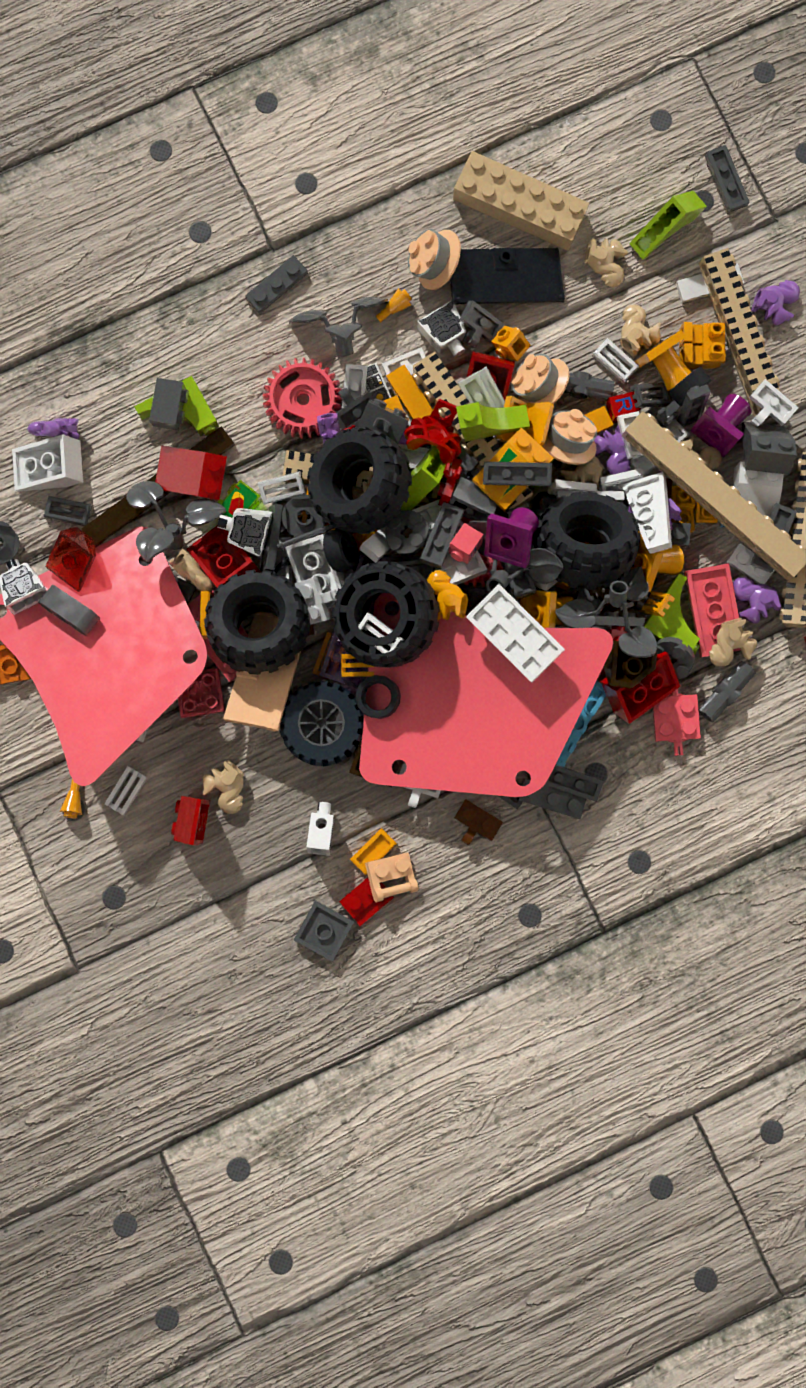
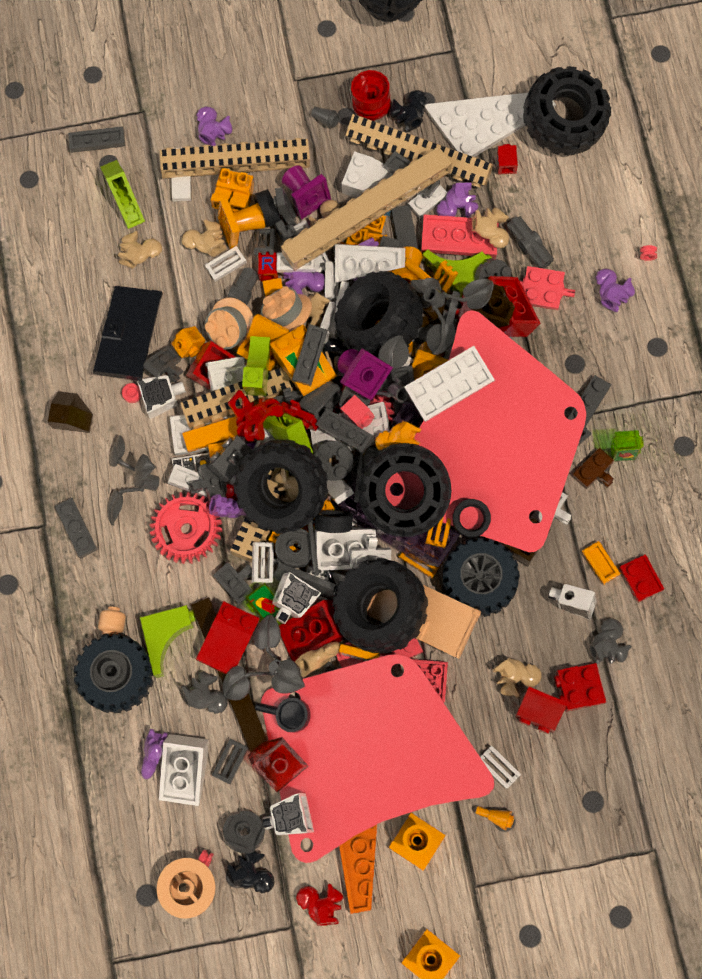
camera: 65 degrees left, 10 degrees down
(38, 727) = (417, 854): none -> light orange plant
(69, 610) = (325, 774): dark grey beam -> none
(125, 364) = (113, 673): none -> black wheel
(125, 559) = (290, 714): none -> black piece
(126, 462) = (200, 697): none -> dark grey animal
(168, 404) = (162, 641): dark grey brick -> none
(182, 348) = (111, 621): none -> light nougat head
(230, 857) = (580, 687): none -> red plate
(256, 465) = (235, 582): none -> dark grey plate
(284, 874) = (605, 643): none -> dark grey animal
(323, 930) = (662, 620): dark grey plate -> none
(368, 616) = (418, 489): white tile -> none
(389, 869) = (620, 551): light nougat plate -> none
(396, 237) = (69, 413): none -> dark brown slope
(398, 302) = (123, 427): light orange cone -> none
(434, 257) = (97, 384): light nougat piece -> none
(439, 298) = (131, 393): none -> coral tile
(509, 850) = (626, 445): none -> clear neon green brick
(520, 200) = (66, 305): tan brick -> none
(575, 782) = (581, 378): dark grey plate -> none
(690, 797) = (611, 292): none -> medium lavender animal
(708, 547) = (404, 226): none -> dark grey tile
(749, 828) = (648, 252): none -> coral bush
(768, 448) = (336, 159): dark grey slope -> none
(772, 403) = (301, 147): white plate -> none

